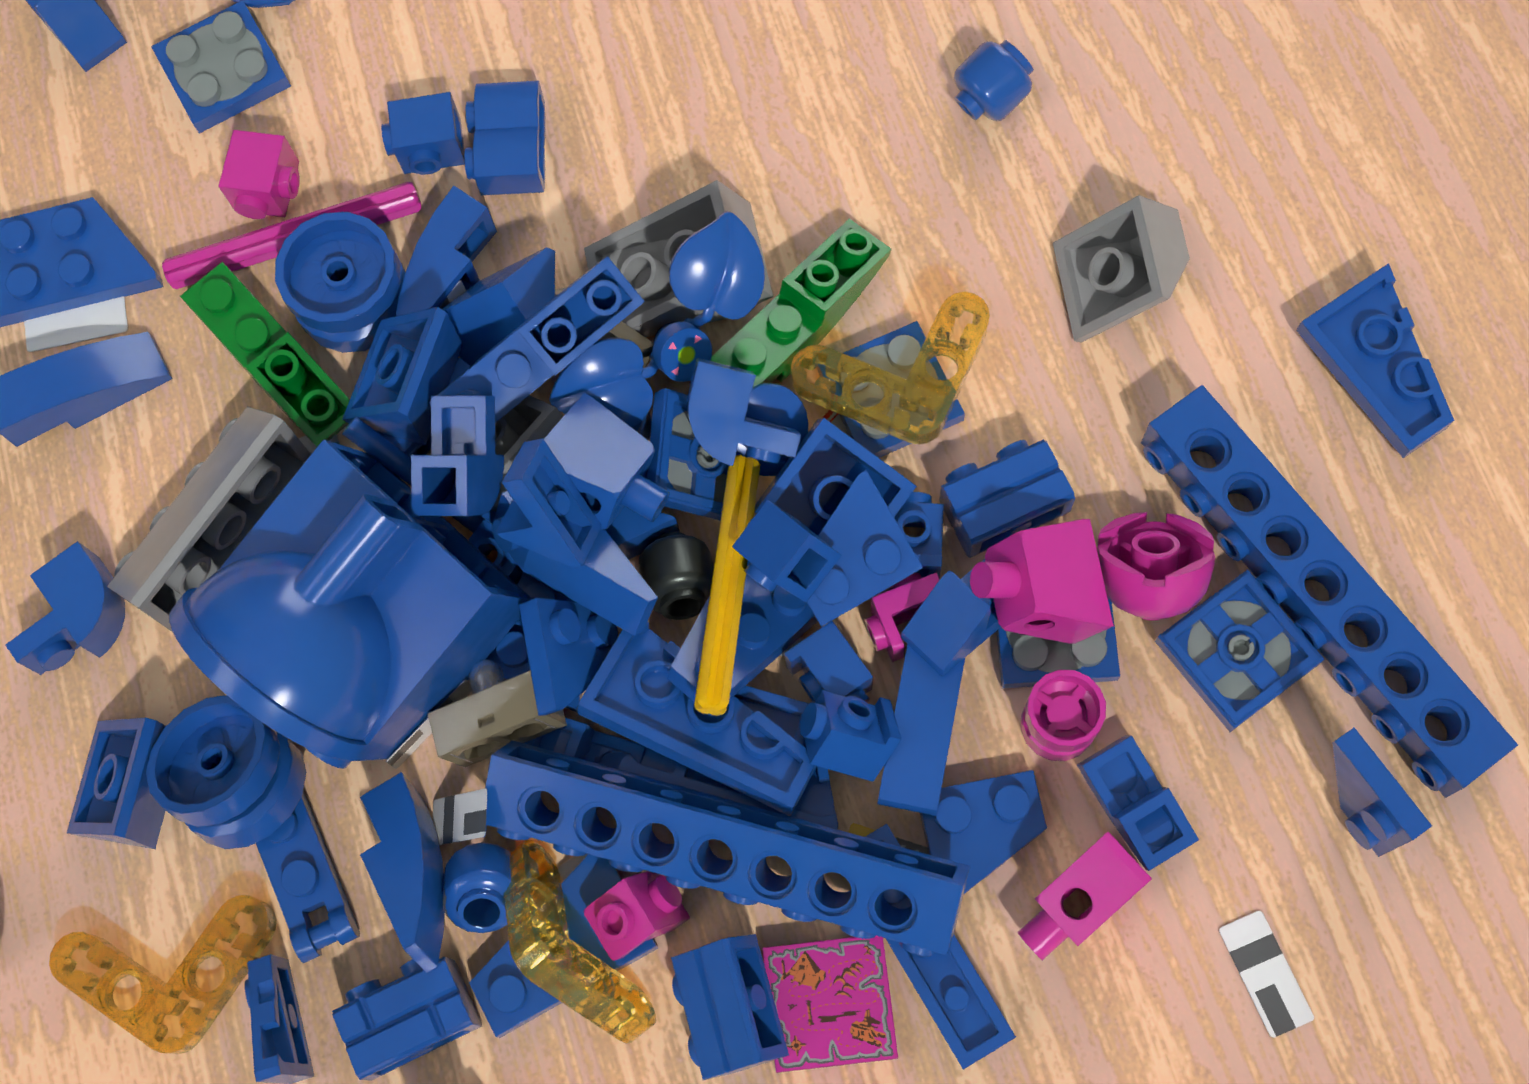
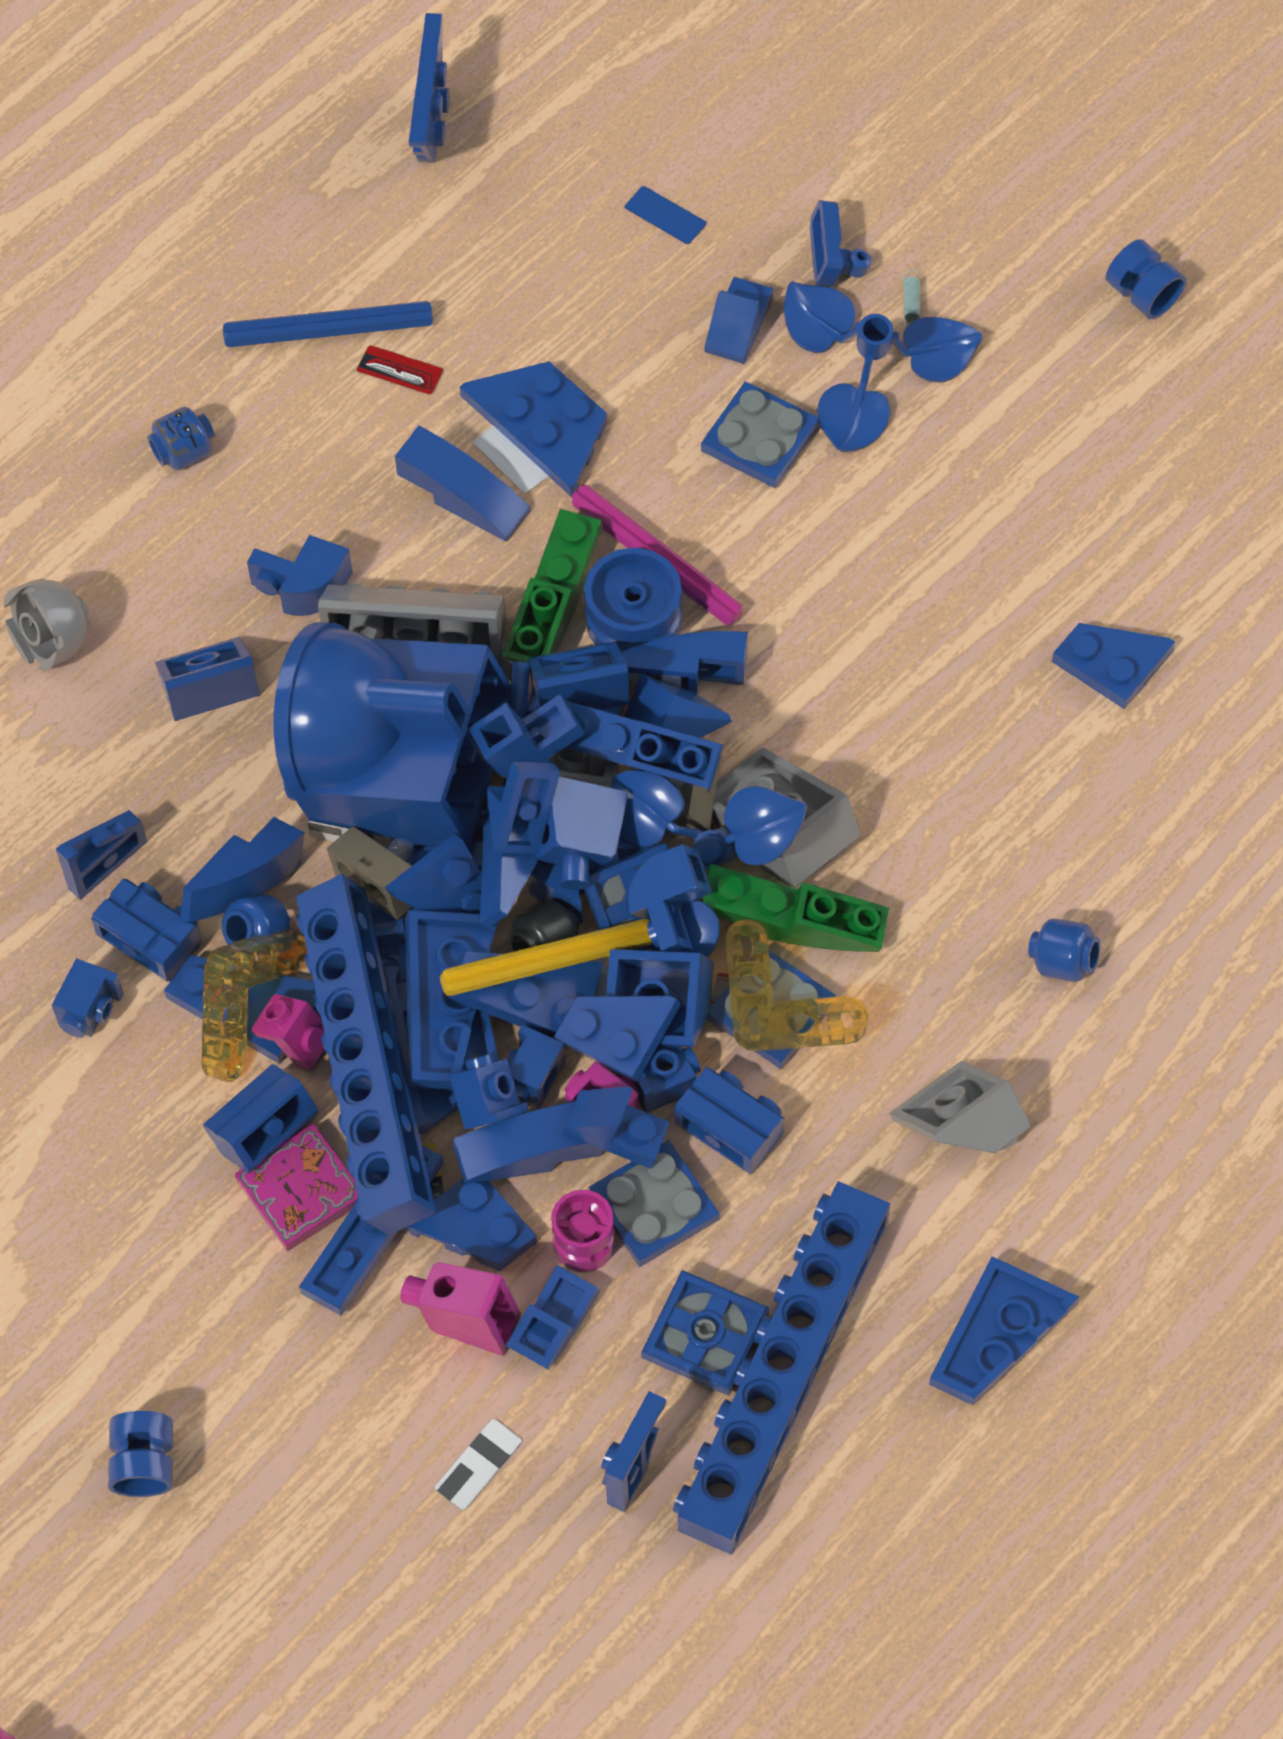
camera: 55 degrees right, 10 degrees down
(157, 996) = (80, 777): clear yellow beam -> none
(225, 773) = (237, 727): blue wheel -> none
(259, 174) = (686, 506): dark pink brick -> none
(305, 882) = (207, 816): blue plate -> none
(424, 133) = (784, 594): blue brick -> none
(461, 816) = (295, 885): white sticker -> none
(507, 138) = (814, 650): blue brick -> none
(678, 349) = (704, 836): blue tile -> none
(785, 552) = (586, 977): blue brick -> none
(1046, 583) = (665, 1159): dark pink torso -> none
(1155, 565) = (729, 1235): dark pink cylinder -> none

